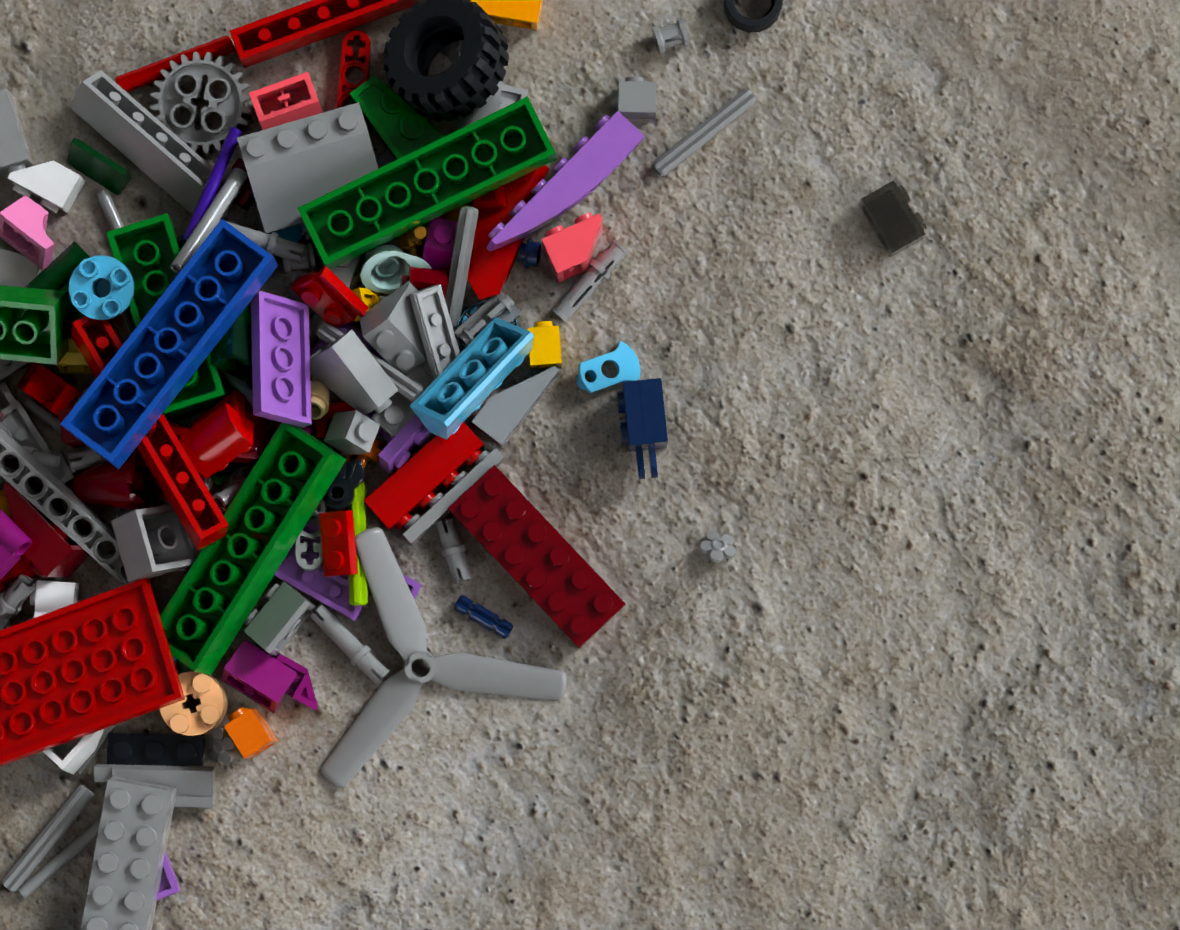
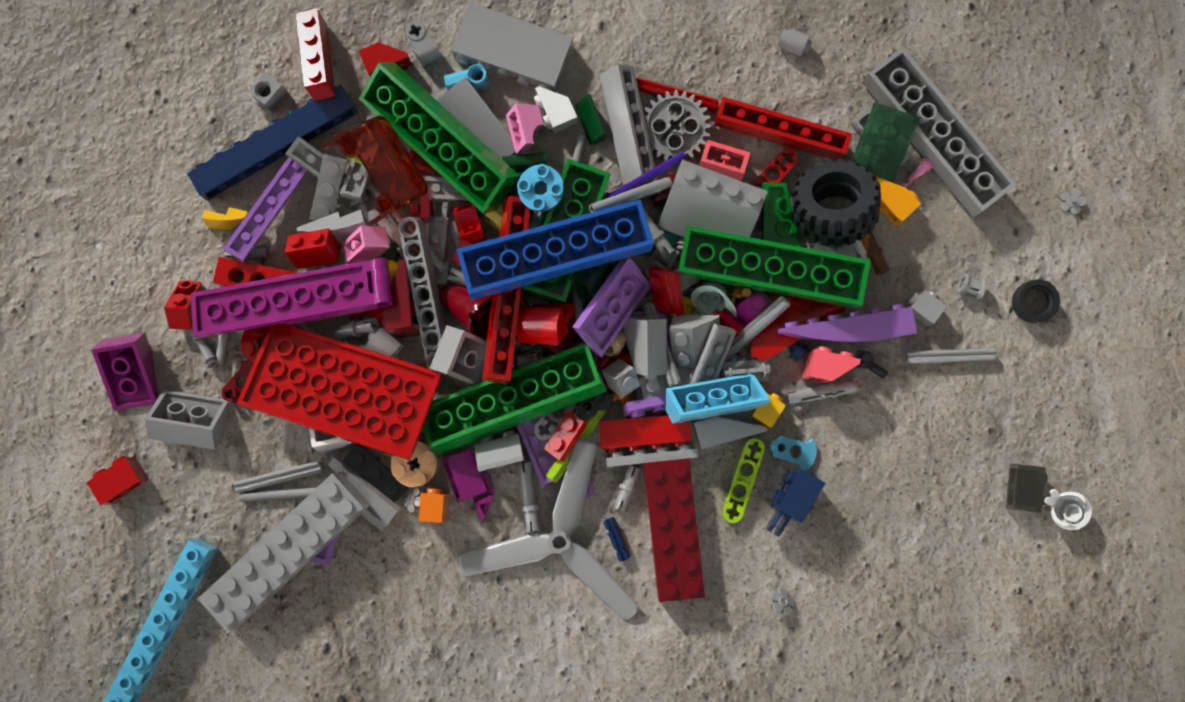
camera: 40 degrees right, 0 degrees up
(534, 80) = (875, 254): none -> reddish brown pin
(579, 444) = (746, 481): none -> lime beam
(613, 210) = (867, 363): none -> black piece
(954, 207) = (1069, 509): none -> white hat

